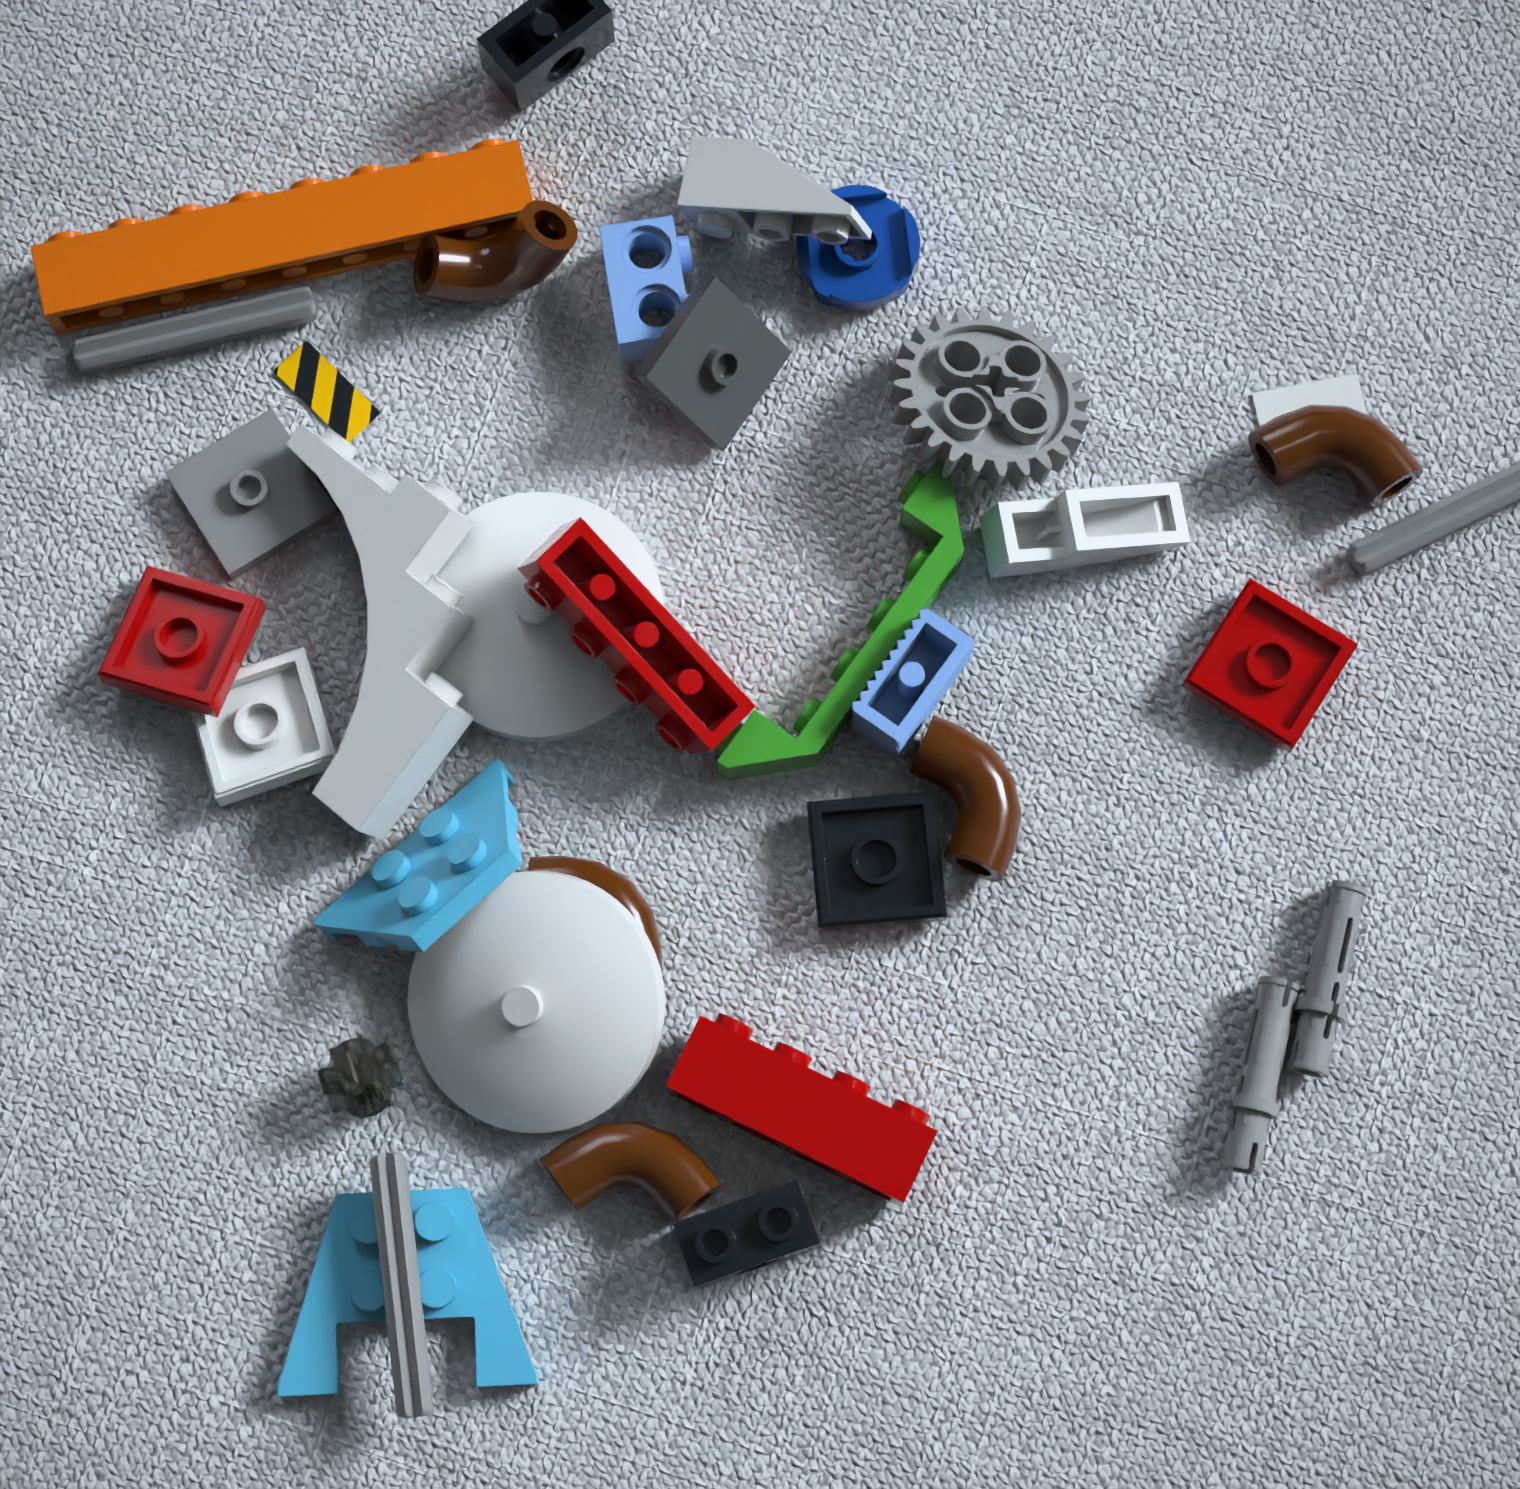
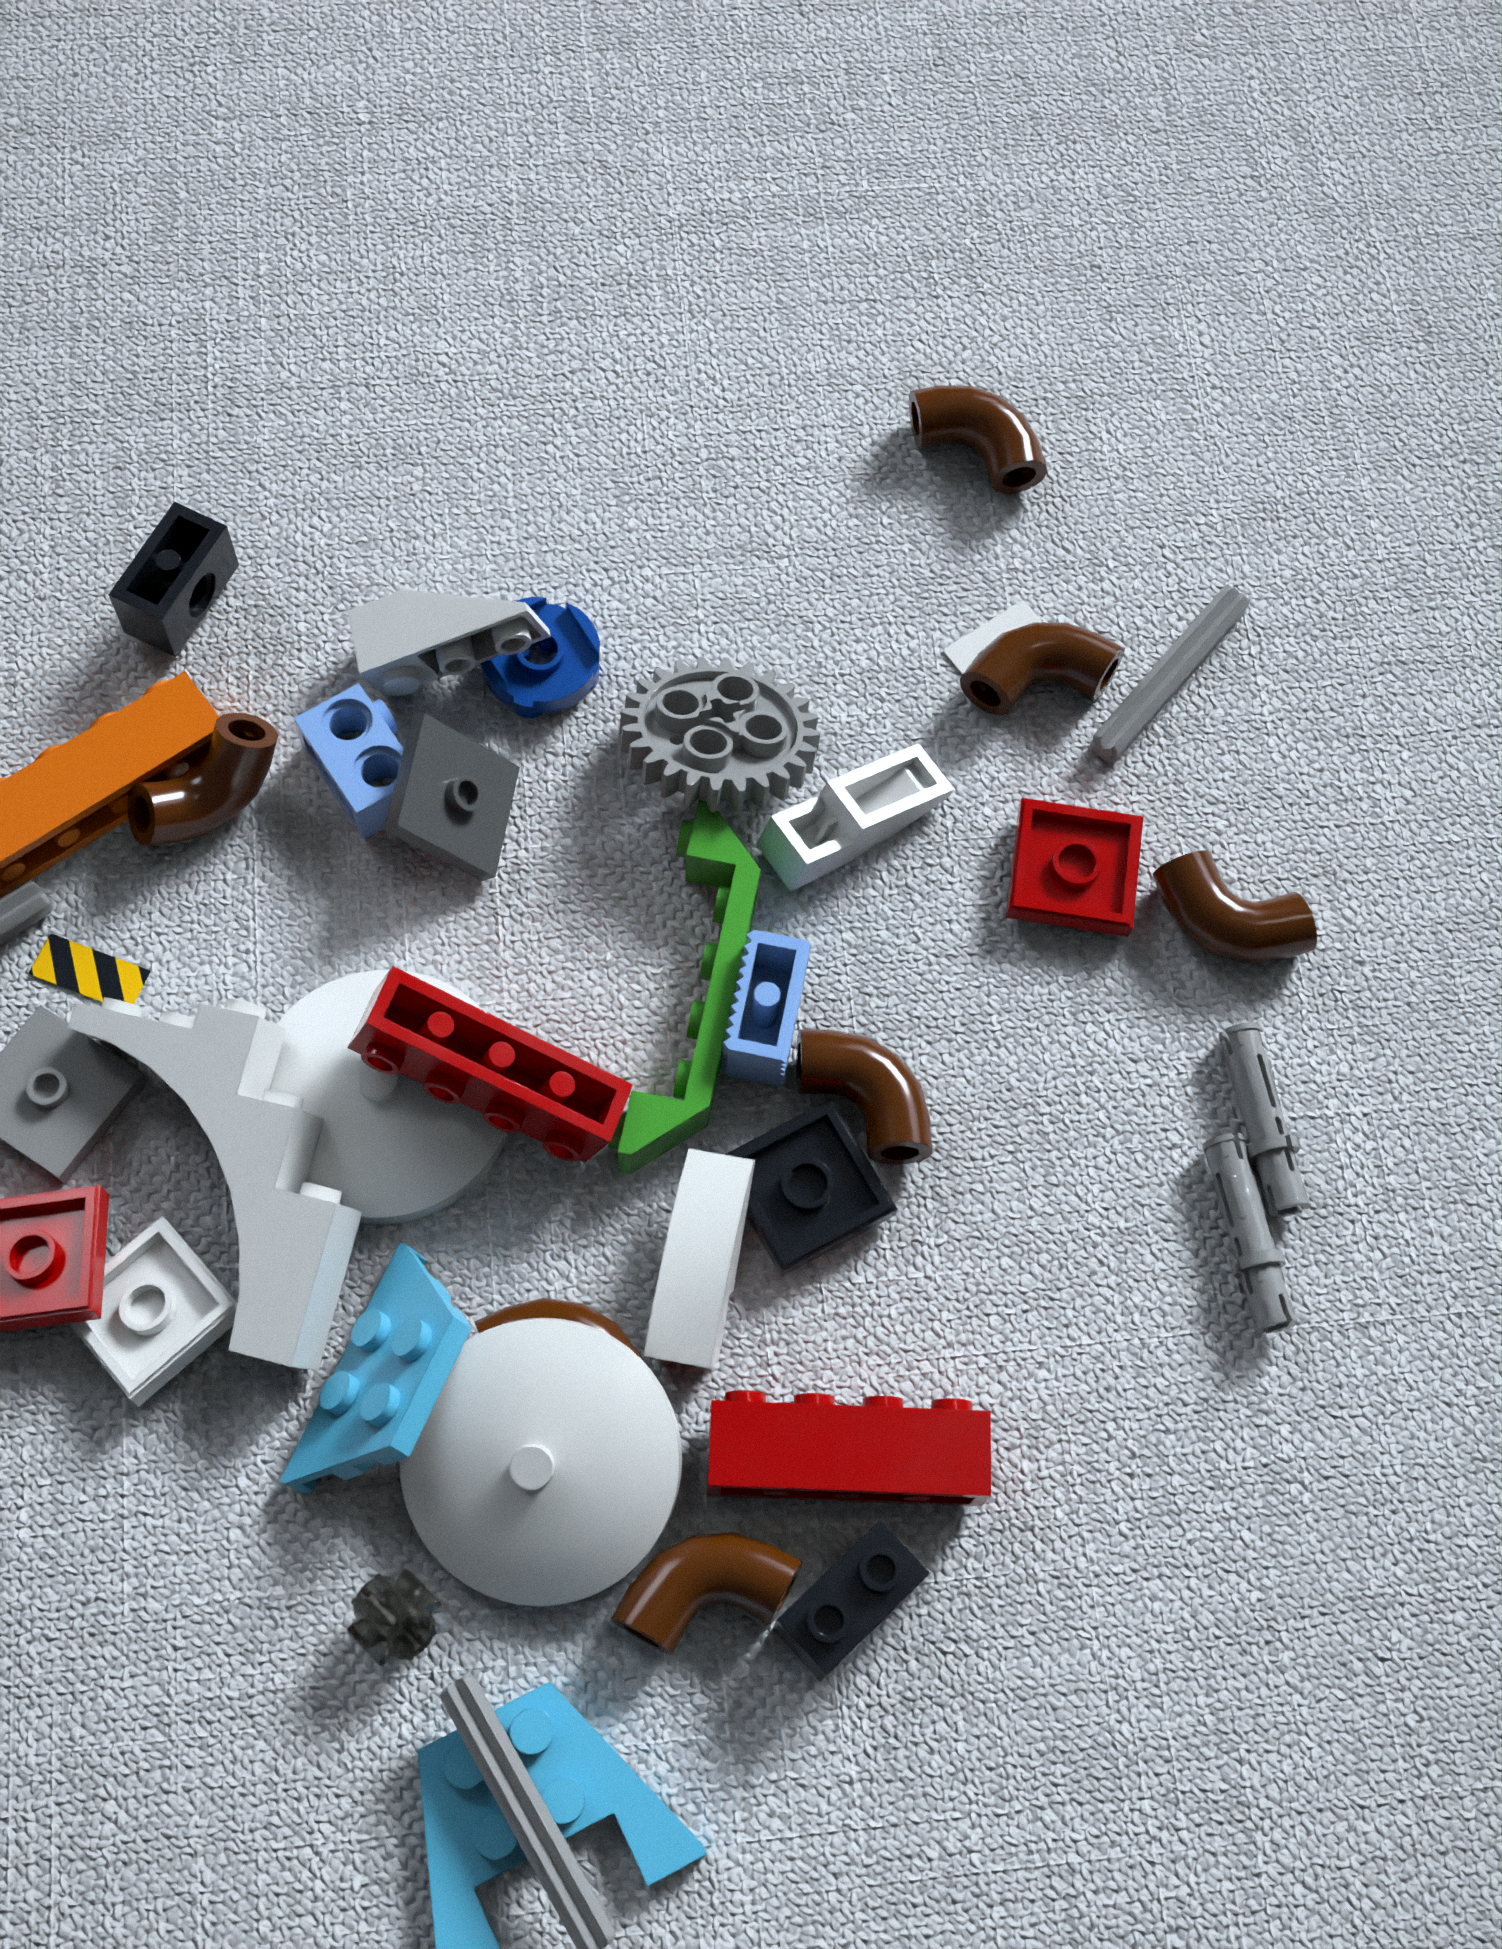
camera: 30 degrees left, 10 degrees down
(749, 886) = (700, 1259): none -> white slope
(1386, 781) = (1228, 924): none -> reddish brown cylinder
(1404, 178) = (985, 424): none -> reddish brown cylinder

